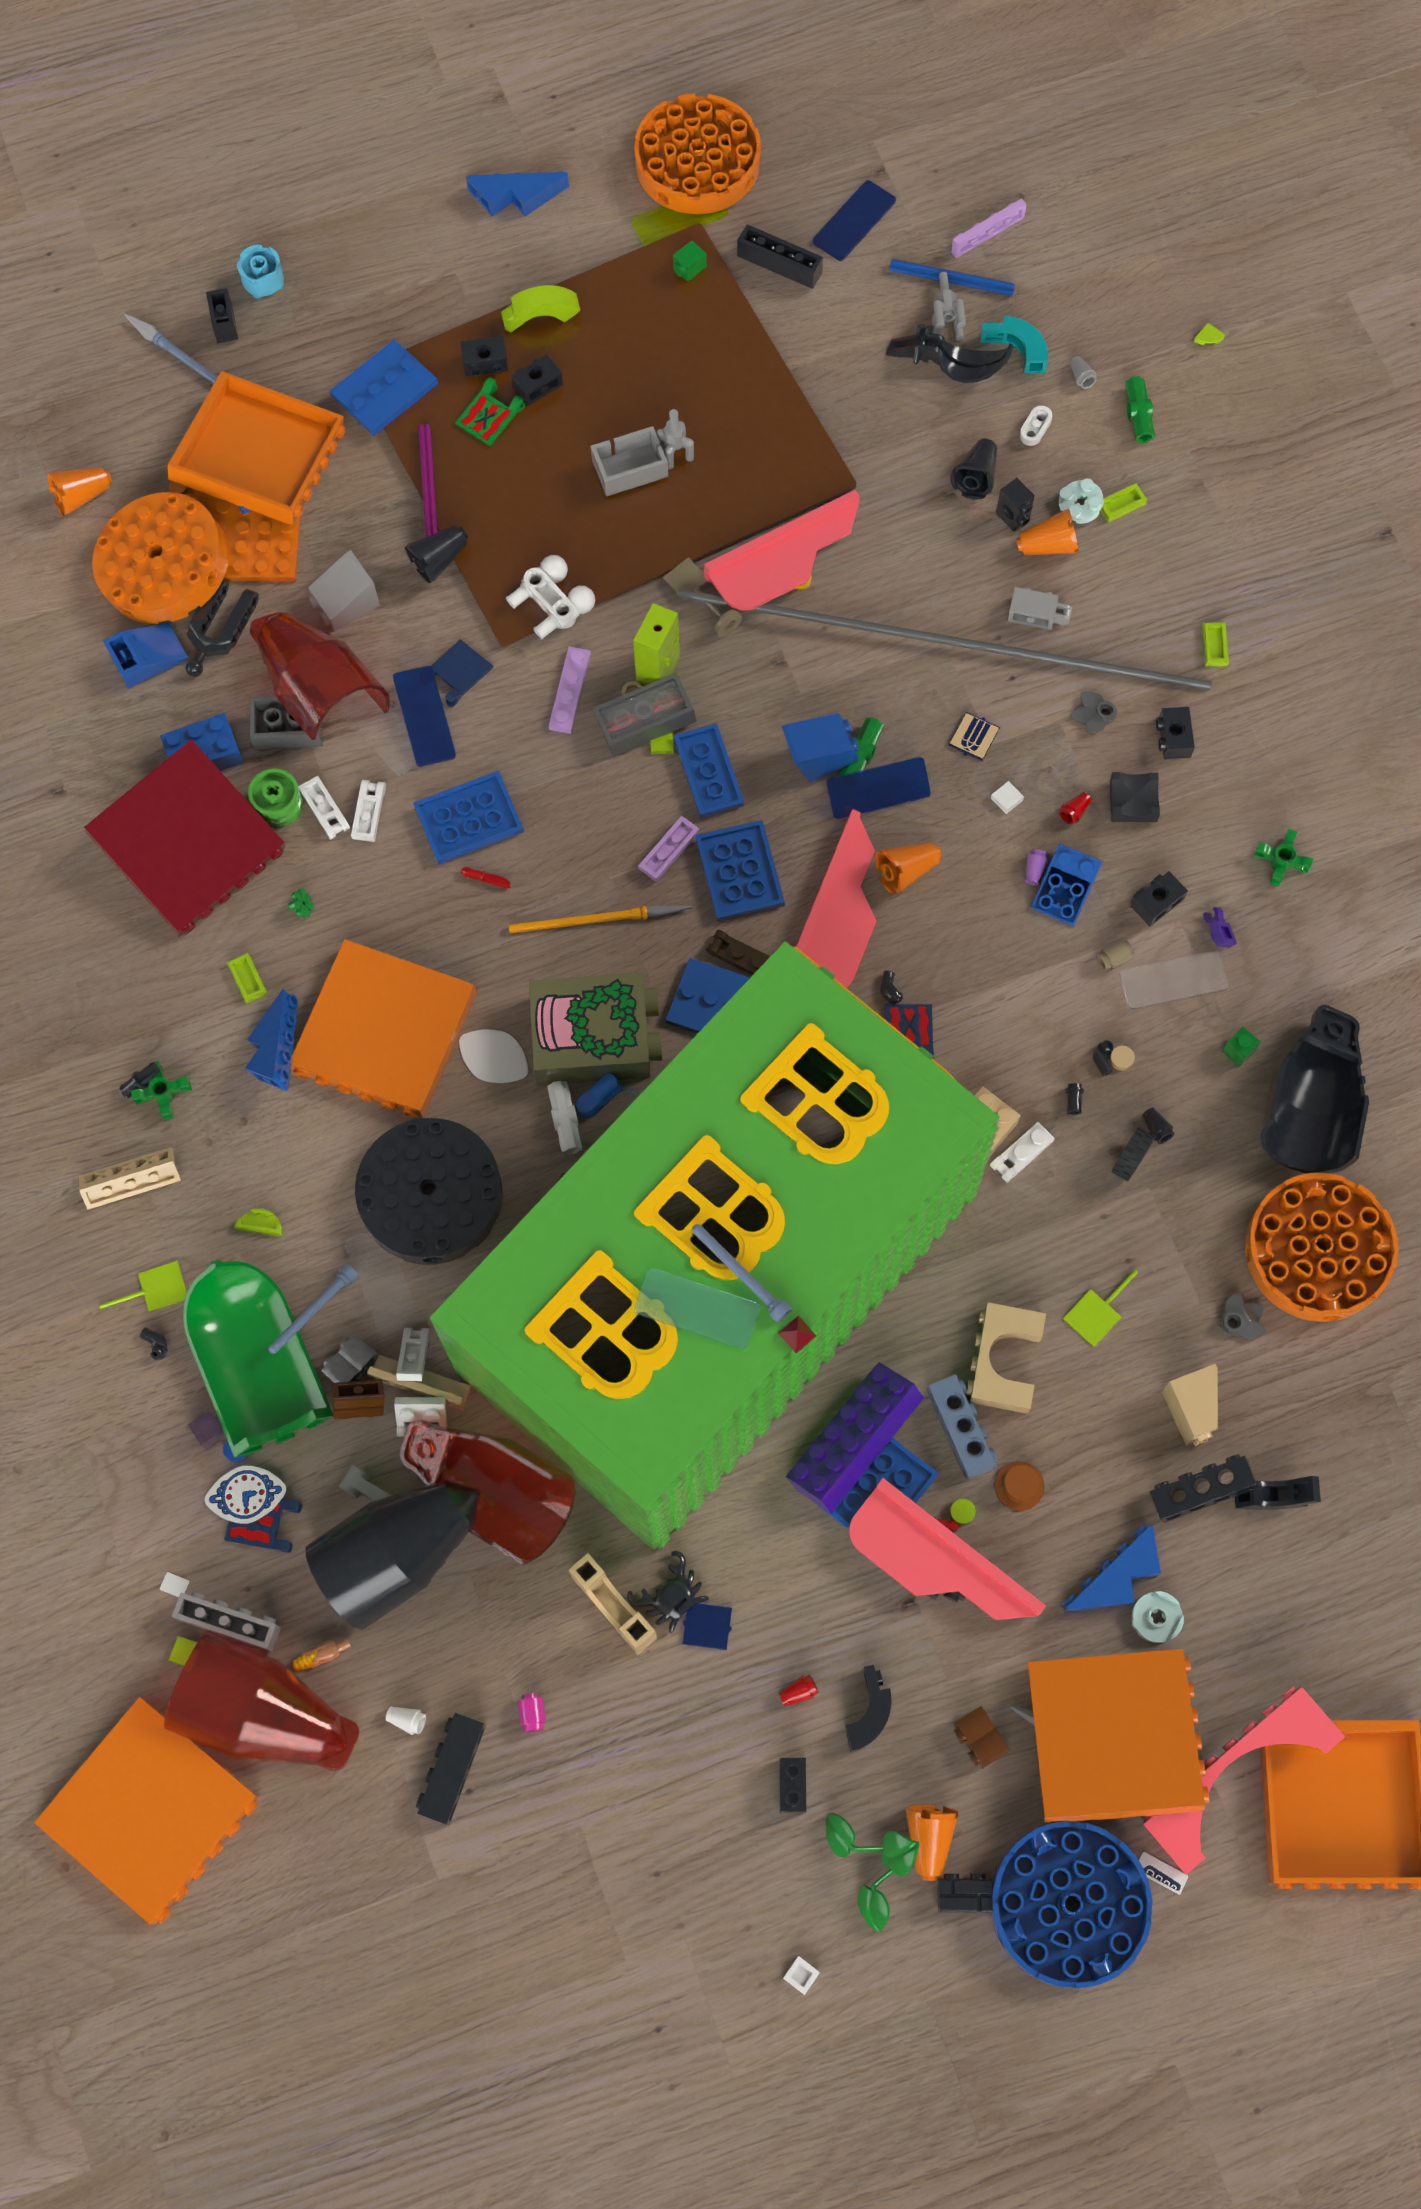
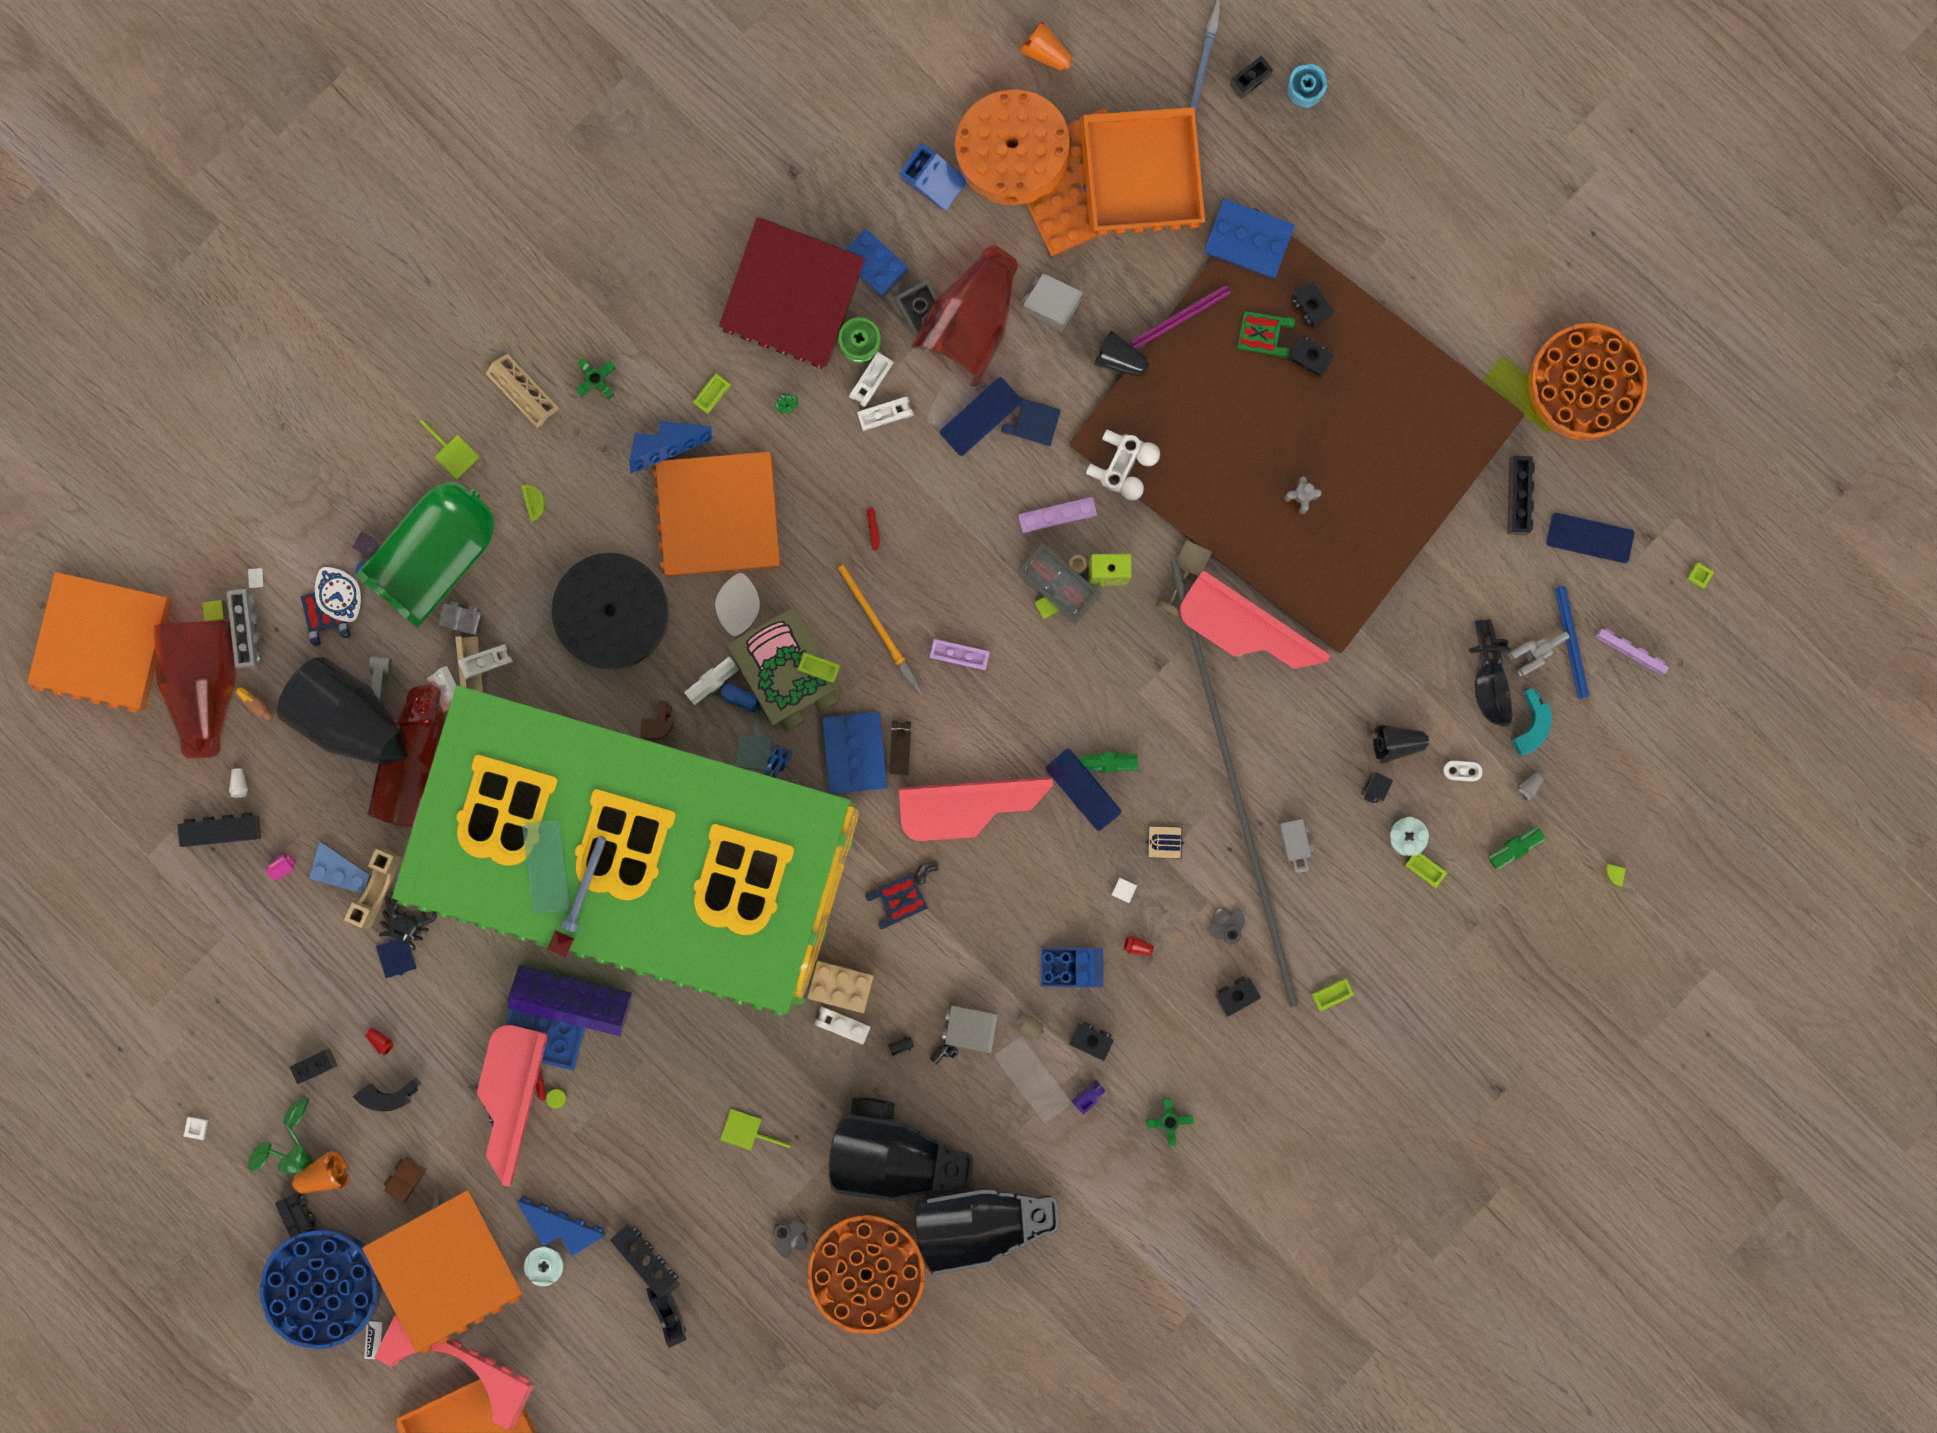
camera: 60 degrees right, 15 degrees up
(139, 1079) = (594, 359): black axle -> none
(157, 1341) = (414, 476): black arm -> none
(231, 632) = (982, 232): black piece -> none
(345, 1276) = (520, 583): sand blue piece -> none
(358, 1399) = (435, 639): reddish brown brick -> none
(468, 817) = (914, 491): blue plate -> none
(524, 190) = (1486, 256): blue slope -> none
(540, 301) = (1378, 327): lime arch -> none
(570, 1647) = (338, 871): none -> medium blue wing
(610, 983) = (818, 667): none -> lime tile
(633, 462) = (1268, 469): light grey piece -> none
(689, 261) = (1479, 425): green brick -> none
(708, 770) = (1038, 653): blue plate -> none
(739, 870) = (967, 716): blue plate -> none
(821, 745) = (1093, 731): blue slope -> none
(905, 864) = (1028, 840): orange cone -> none
(941, 142) = (1700, 575): none -> lime tile
(971, 1465) = (591, 1092): sand blue brick -> none
(988, 1386) = (702, 1064): tan arch -> none
(1019, 1486) = (594, 1130): dark orange piece -> none
(1035, 866) = (1075, 937): medium lavender cone -> none
(1050, 536) = (1363, 827): orange cone -> none
(1090, 1011) = (970, 1028): none -> light grey slope
(1122, 1058) = (950, 1067): tan tile -> none
(1134, 797) = (1167, 987): black brick -> none
(1158, 1125) = (908, 1114): black cone -> none
(1194, 1404) = (704, 1230): tan slope -> none
(1202, 1156) = (892, 1161): none -> black windscreen
(1241, 1046) = (998, 1152): green brick -> none

